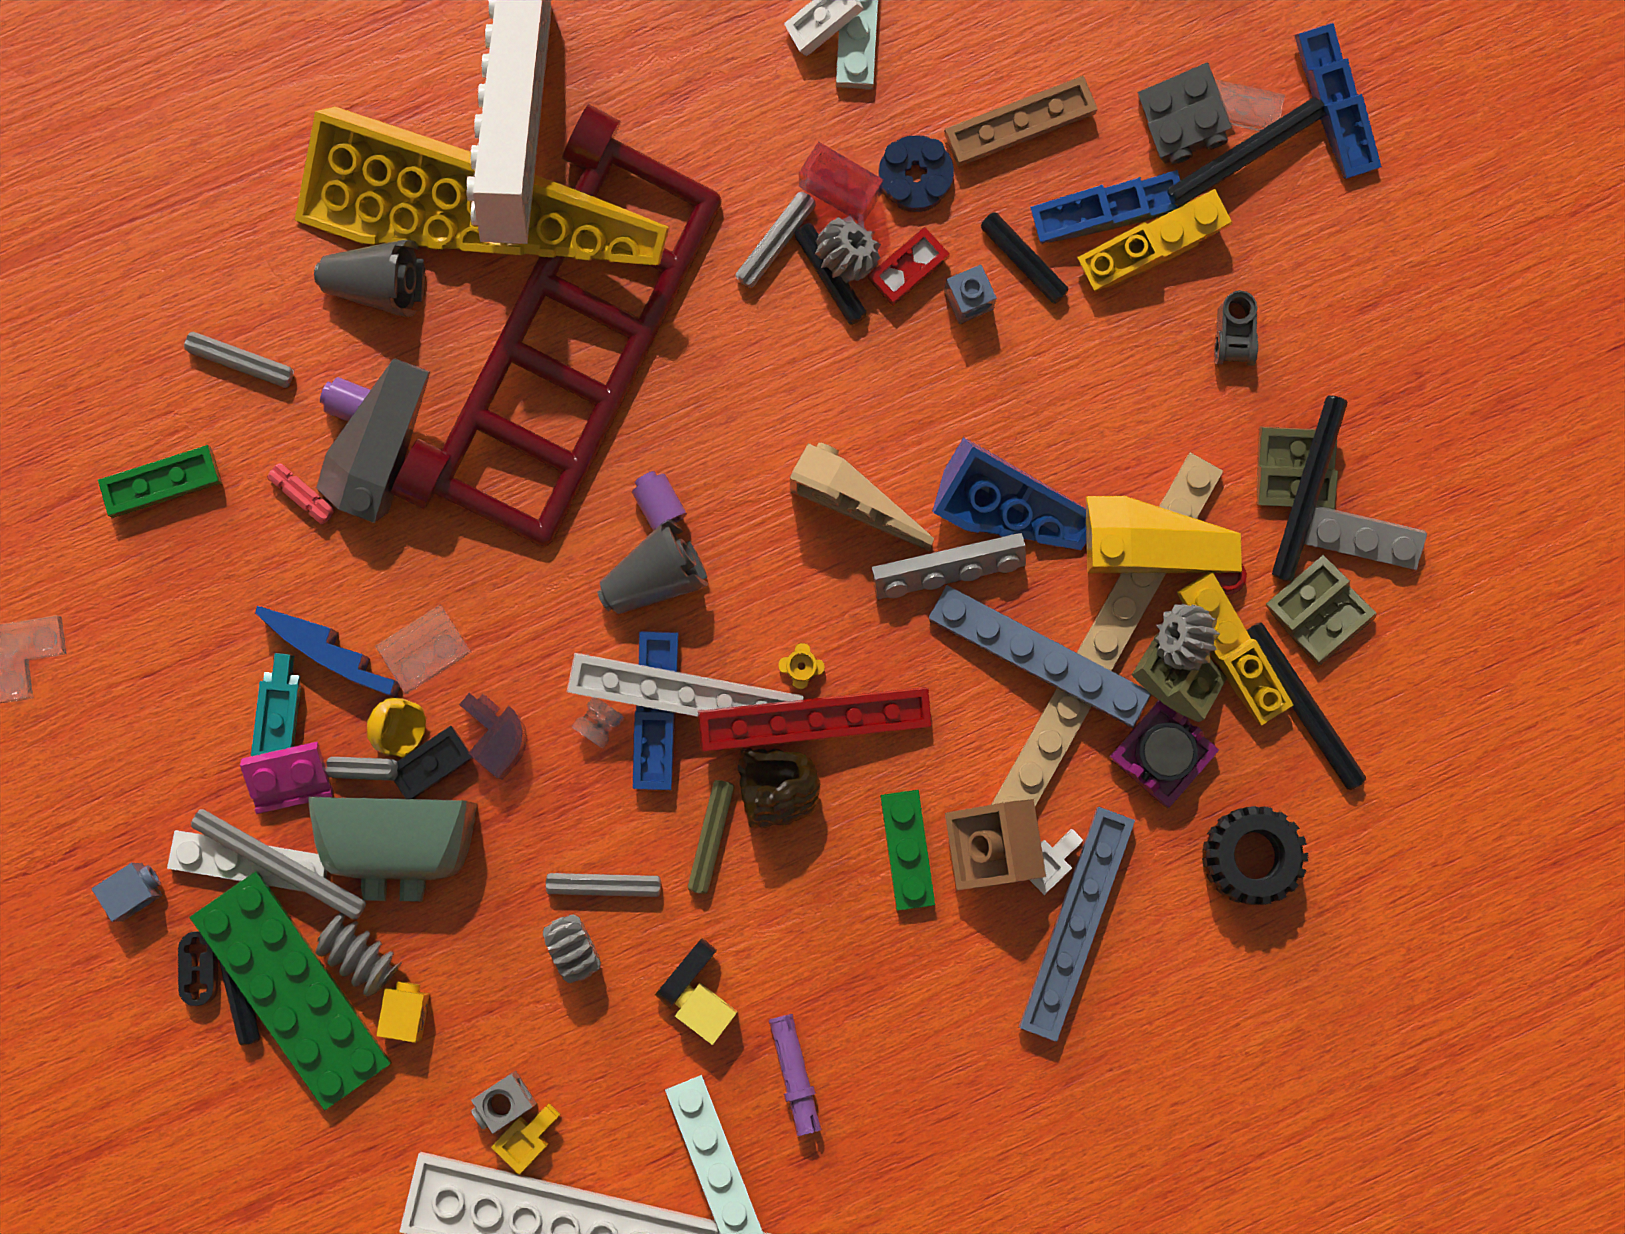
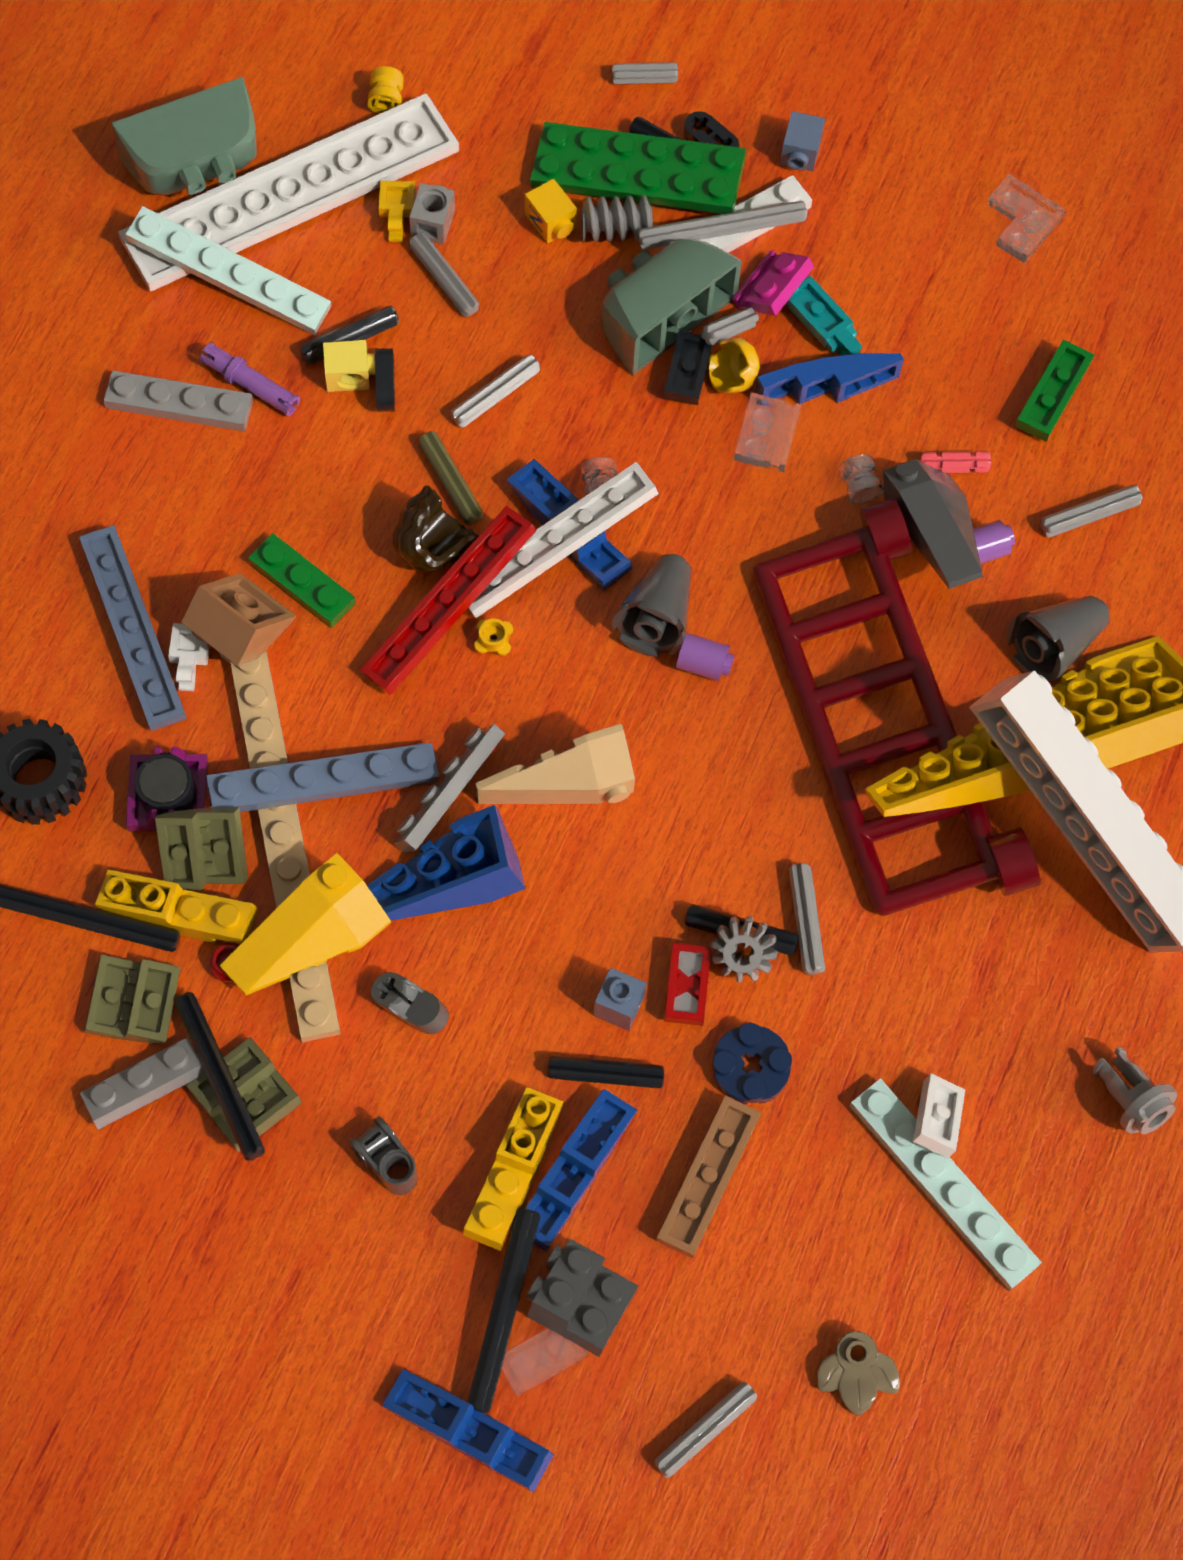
camera: 135 degrees right, 15 degrees down
(189, 1087) = (644, 73): none -> light grey axle
(391, 540) = (860, 477): none -> clear wheel
(505, 739) = (657, 424): brick -> none
(545, 1035) = (444, 274): none -> light grey axle
(571, 948) = (476, 327): light grey gear -> none
(675, 1046) = (356, 330): none -> black axle
(840, 182) = (798, 993): clear pink brick -> none
(868, 1109) = (178, 400): none -> light grey plate
(1125, 445) = (395, 992): none -> dark grey piece
(1186, 637) = (219, 868): light grey gear -> none

